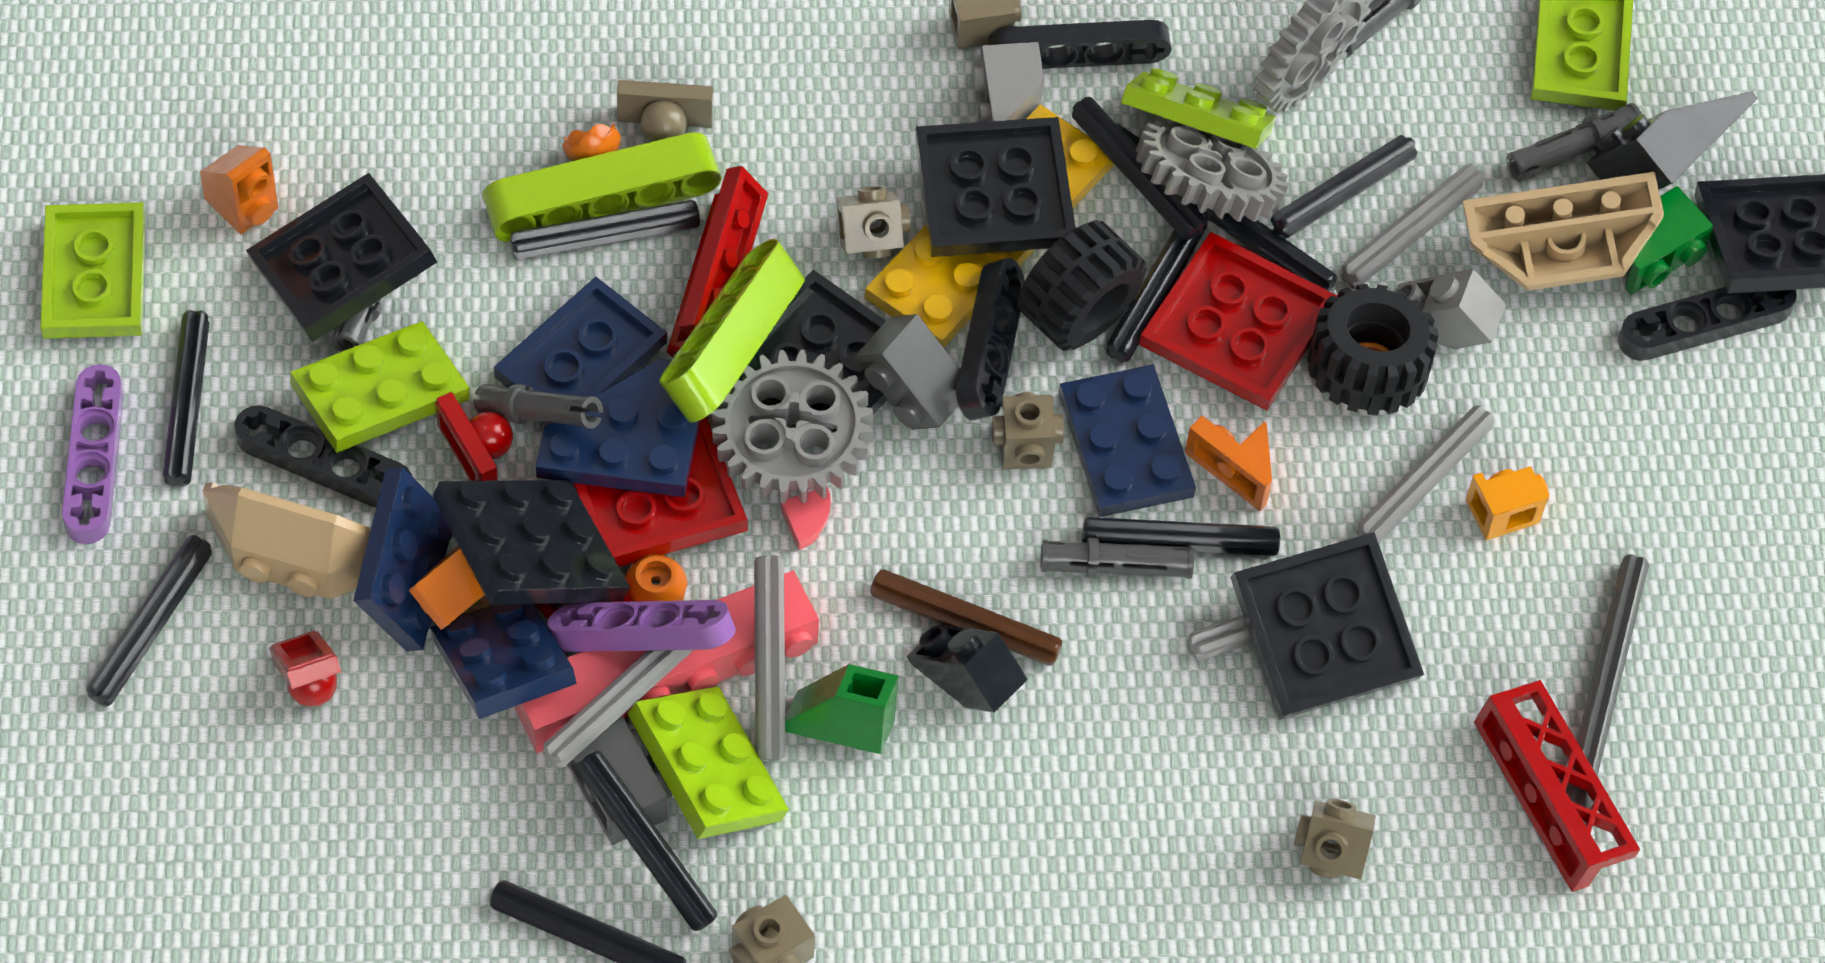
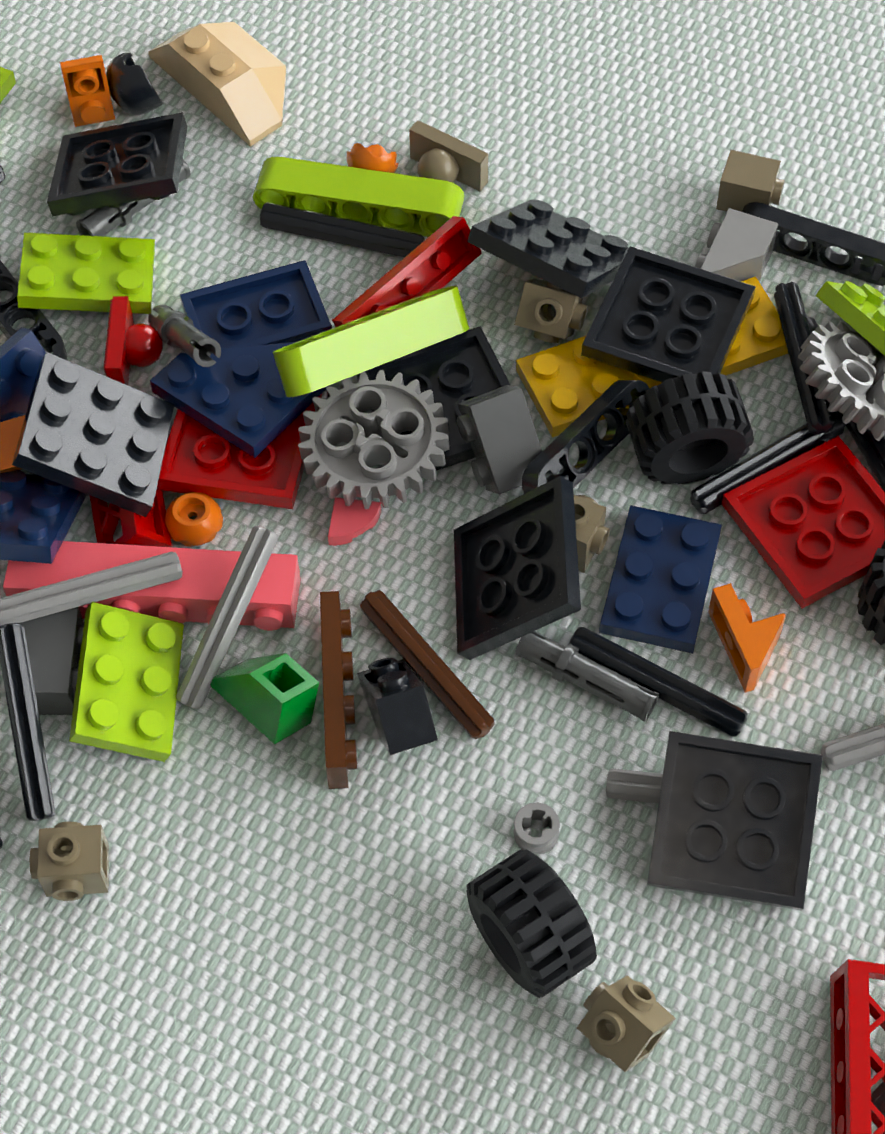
camera: 35 degrees right, 0 degrees up
(295, 167) = (131, 86): none -> black hair
(370, 110) = (228, 76): none -> tan wedge
(638, 626) = (133, 541): medium lavender beam -> none
(840, 157) = (551, 246): none -> black plate
(915, 694) = (338, 707): none -> reddish brown plate
(1005, 489) = (516, 569): none -> black plate
(1161, 702) = (524, 819): none -> light grey bush
(1216, 792) = (531, 922): none -> black tyre

